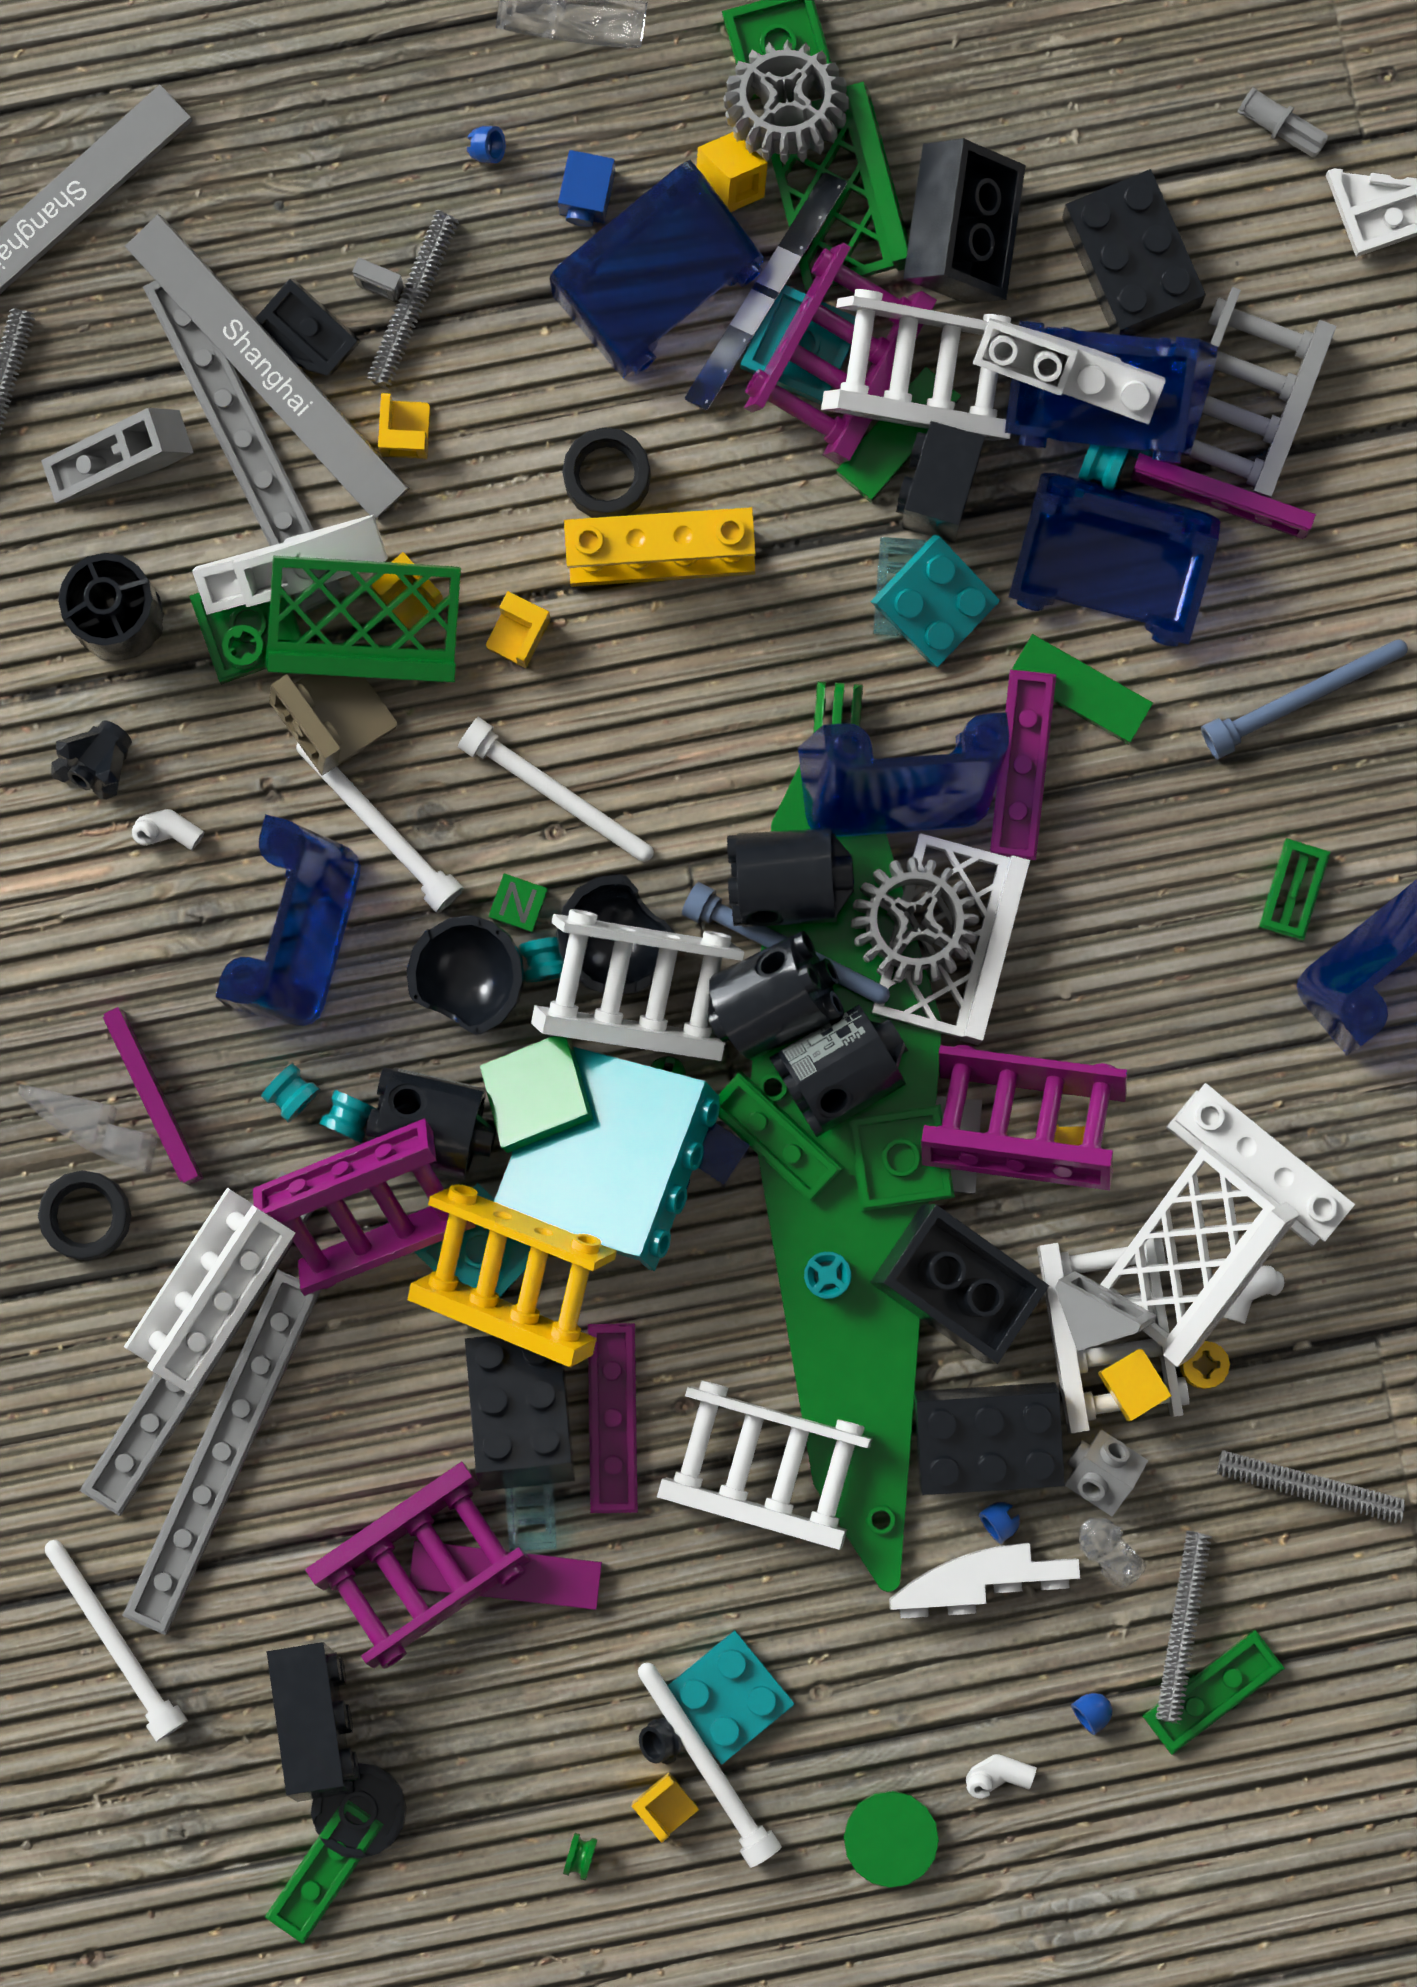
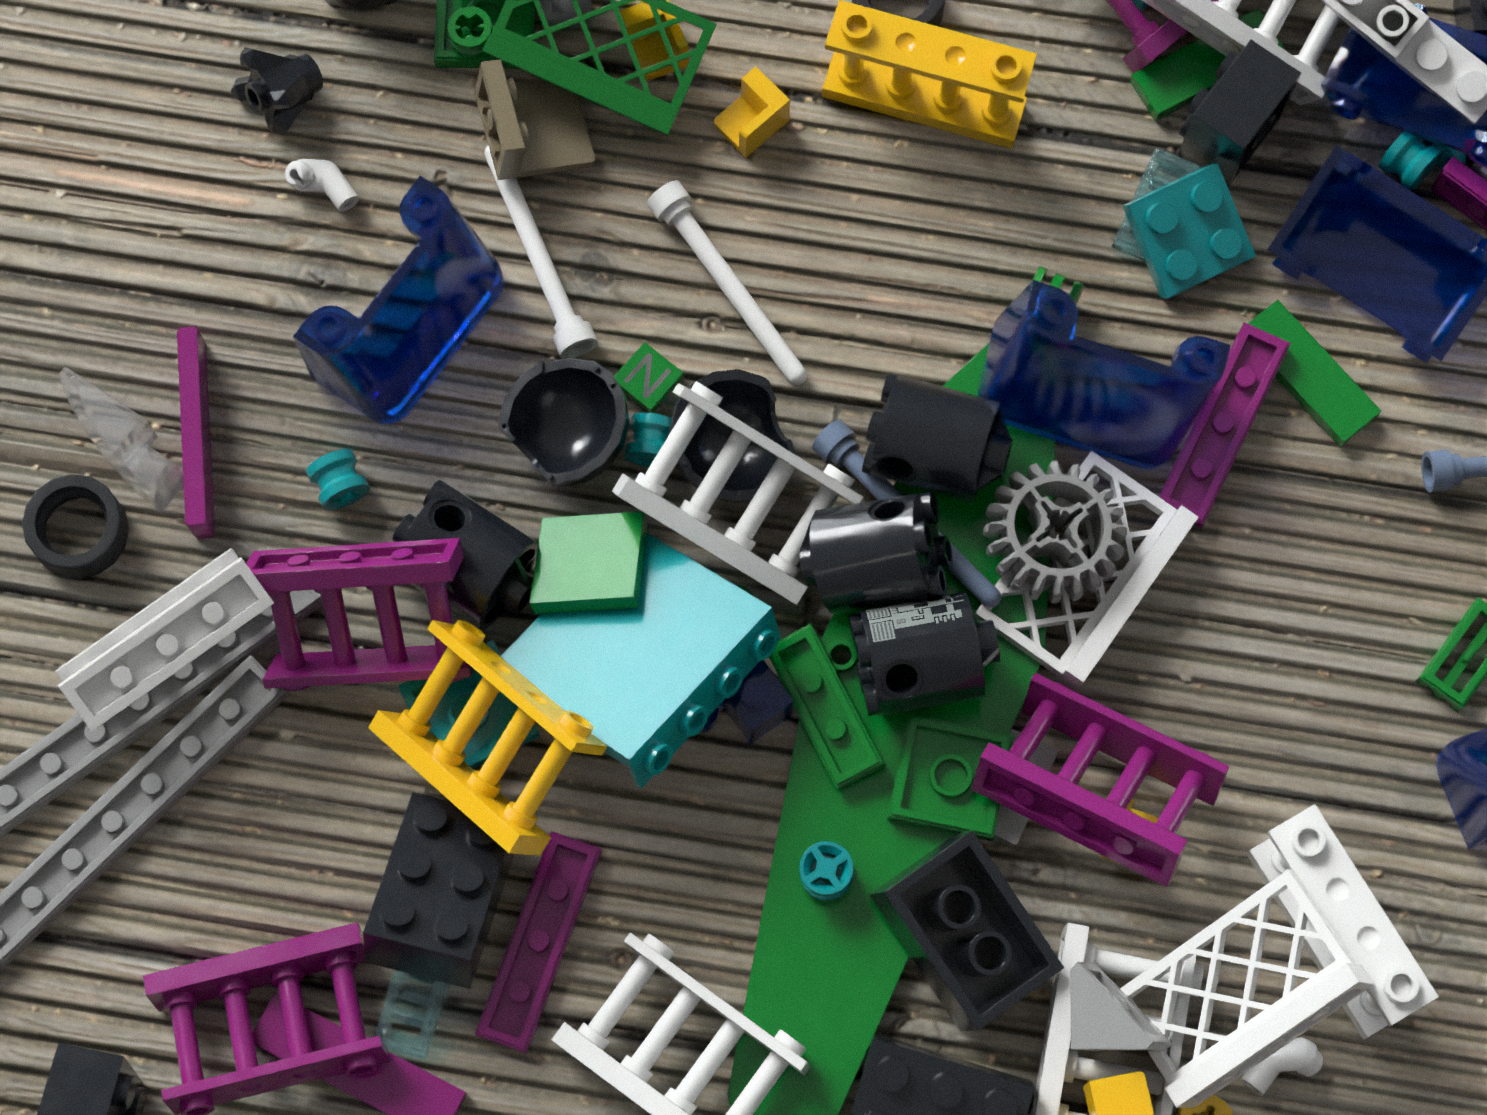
camera: 15 degrees right, 10 degrees down
(347, 1116) = (382, 520): teal wheel -> none

